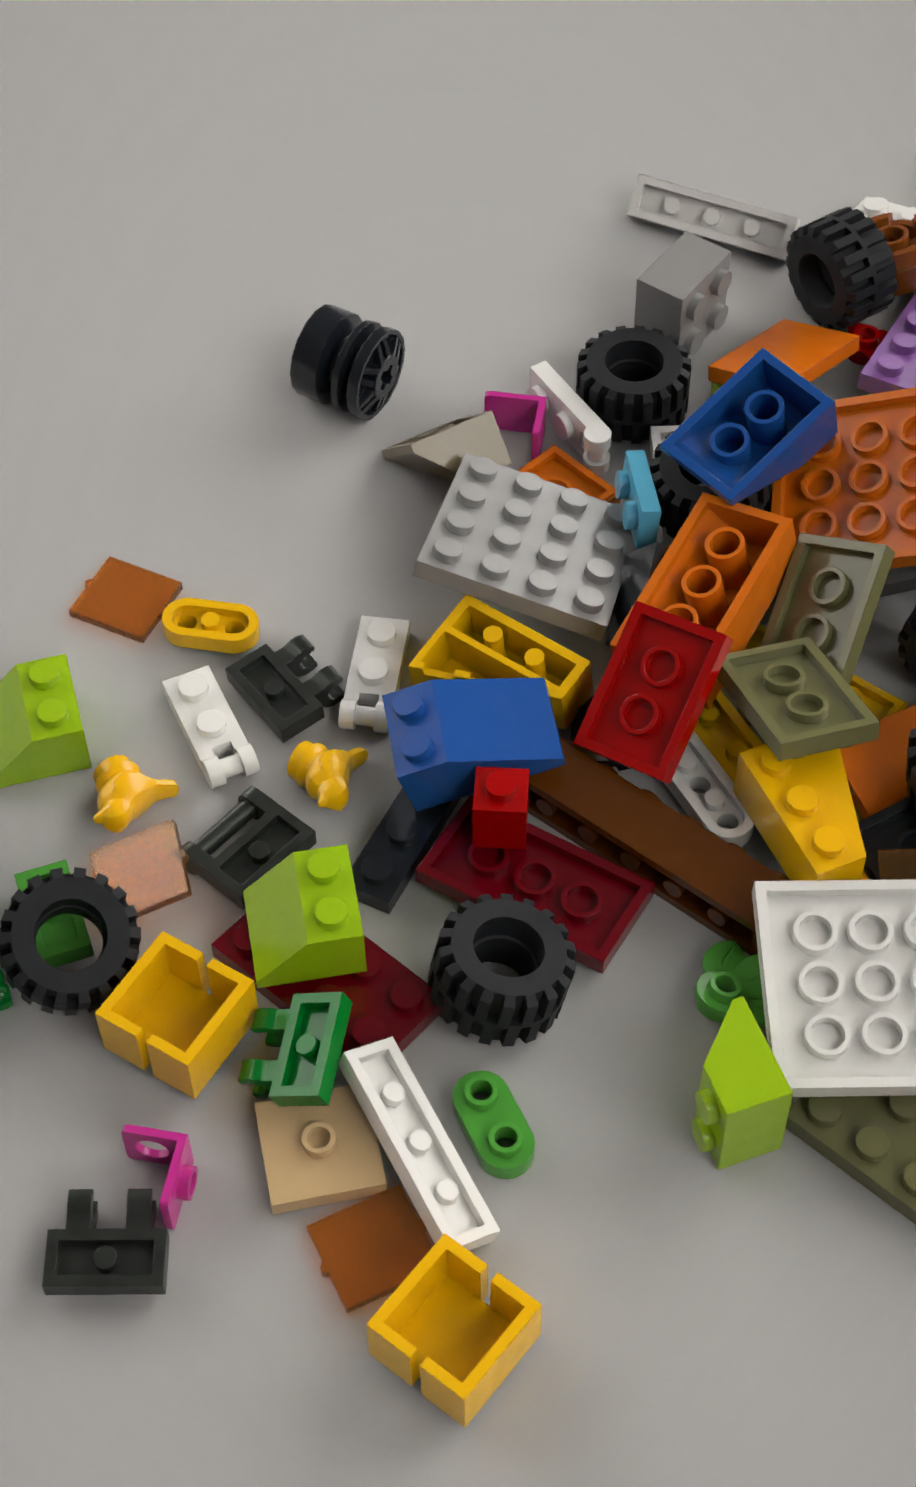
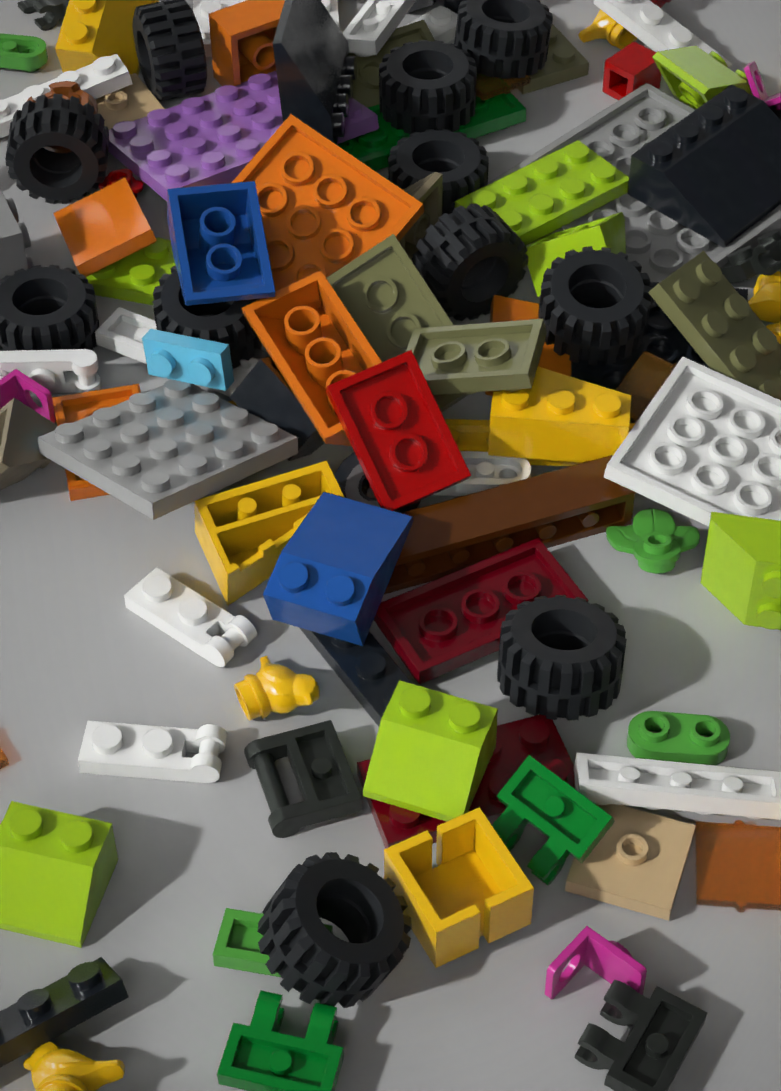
camera: 60 degrees left, 5 degrees down
(126, 792) = (182, 838): yellow animal -> none
(146, 867) = (268, 853): clear orange piece -> none
(211, 625) = (41, 700): yellow plate -> none
(276, 694) = (157, 686): pearl dark grey plate -> none
(500, 807) = (417, 582): red brick -> none

